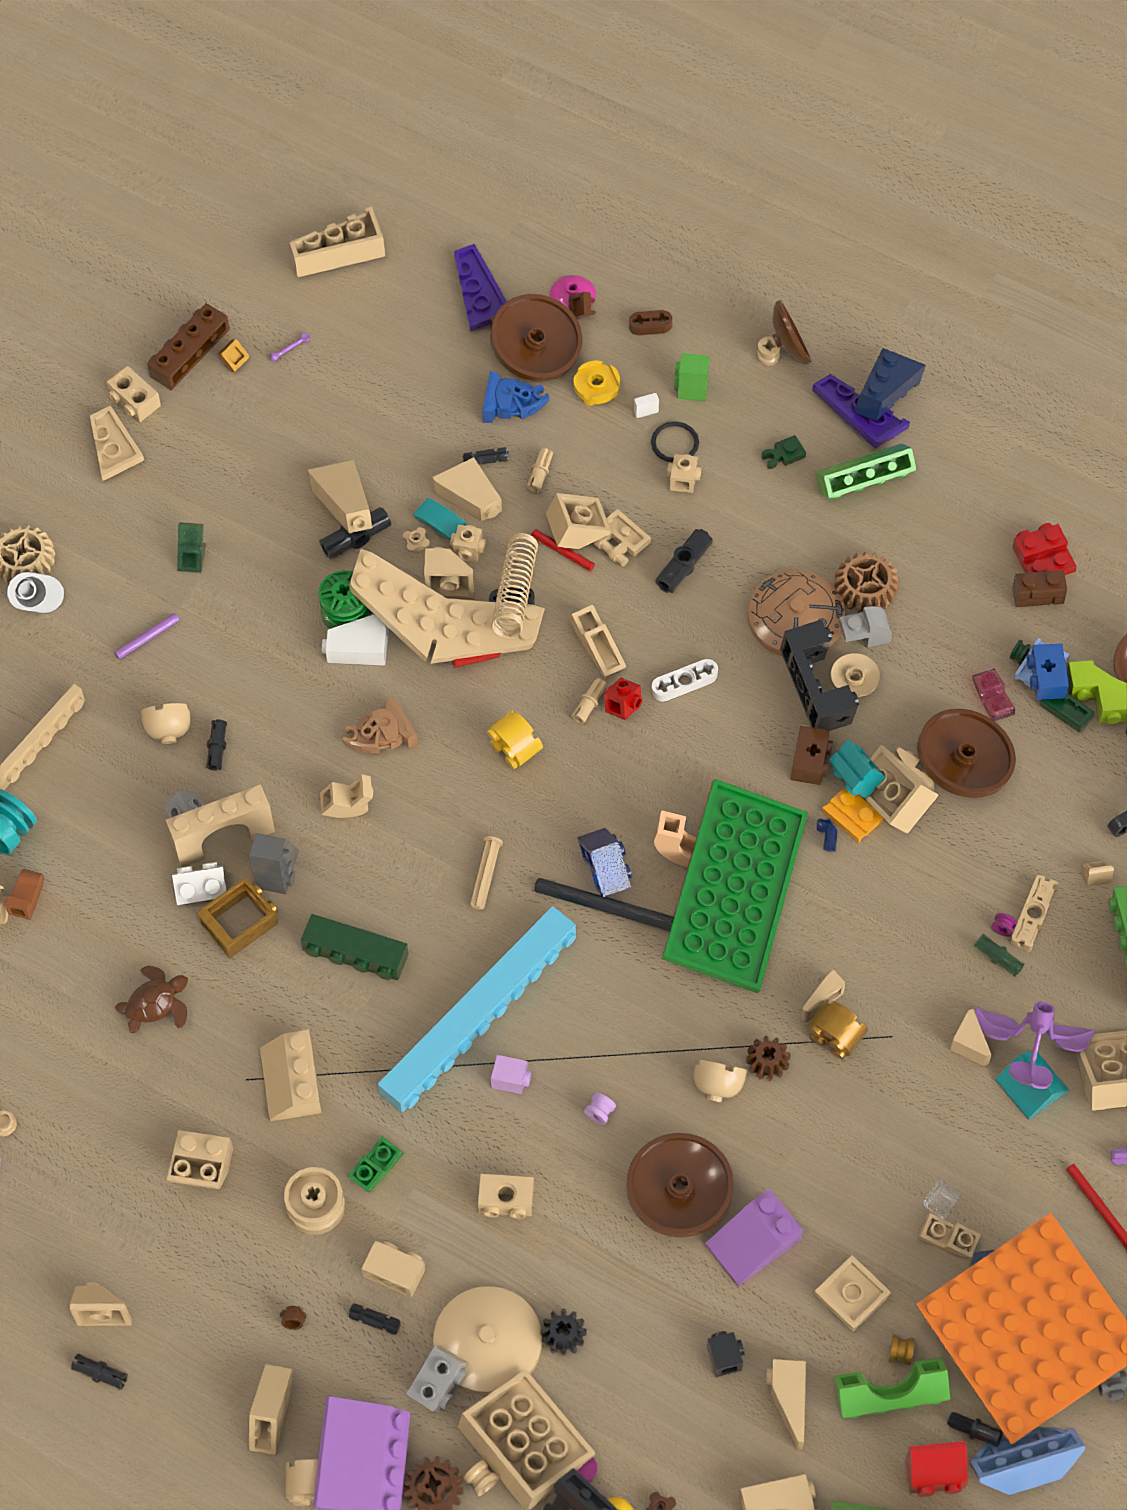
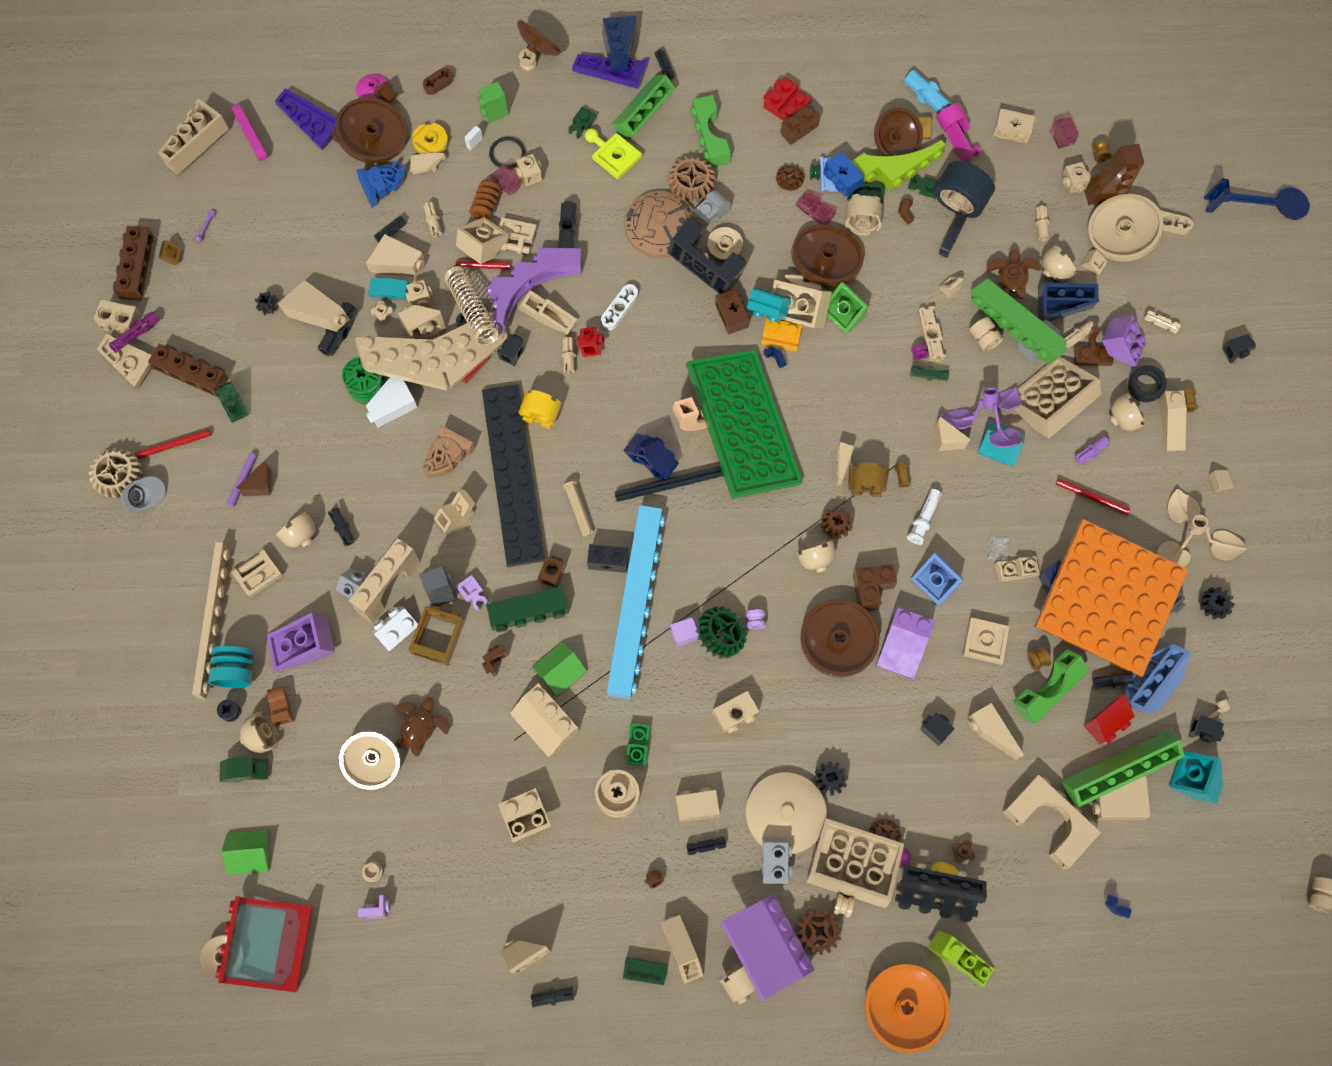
camera: 35 degrees left, 10 degrees up
(64, 1004) = (367, 771): none -> tan dish
(92, 840) = (301, 642): none -> medium lavender slope
(95, 749) = (260, 577): none -> tan plate
(101, 558) = (172, 444): none -> red bar
(113, 421) = (150, 319): none -> magenta pin
(160, 647) = (257, 483): none -> reddish brown slope
(167, 487) = (187, 369): none -> reddish brown brick
(215, 1408) = (644, 971): none -> dark green plate
(286, 975) = (495, 655): none -> reddish brown bracket
(298, 463) = (270, 300): none -> black gear
(307, 893) = (471, 591): none -> lavender plate
(345, 1034) = (559, 669): none -> bright green slope
(403, 271) = (249, 132): none -> dark pink beam
(404, 932) = (551, 579): none -> reddish brown brick
(437, 798) = (513, 476): none -> black plate
(478, 943) = (607, 558): none -> black brick
(529, 659) = (511, 350): none -> black brick
(540, 1107) = (718, 620): none -> dark green gear
(576, 404) = (425, 162): none -> tan slope
(592, 1425) = (887, 825): none -> reddish brown gear
(599, 587) = (547, 264): none -> medium lavender arch
(611, 478) = (485, 199): none -> dark orange piece
(649, 470) = (506, 180): none -> clear pink brick
(762, 1144) = (870, 581): none -> reddish brown brick
(803, 498) = (614, 145): none -> neon yellow plate
(842, 1189) = (937, 579): none -> medium blue slope
(870, 1117) = (922, 524): none -> white pin
(887, 1045) = (902, 473): none -> pearl gold pin
(919, 563) = (715, 149): none -> bright green arch
(925, 437) = (664, 63): none -> black axle
(947, 826) = (846, 308): none -> bright green slope
(984, 651) = (790, 184): none -> reddish brown gear
(1042, 730) = (863, 214): none -> tan brick
(1098, 949) = (985, 333): none -> tan wheel
(1099, 754) = (903, 210): none -> reddish brown arm

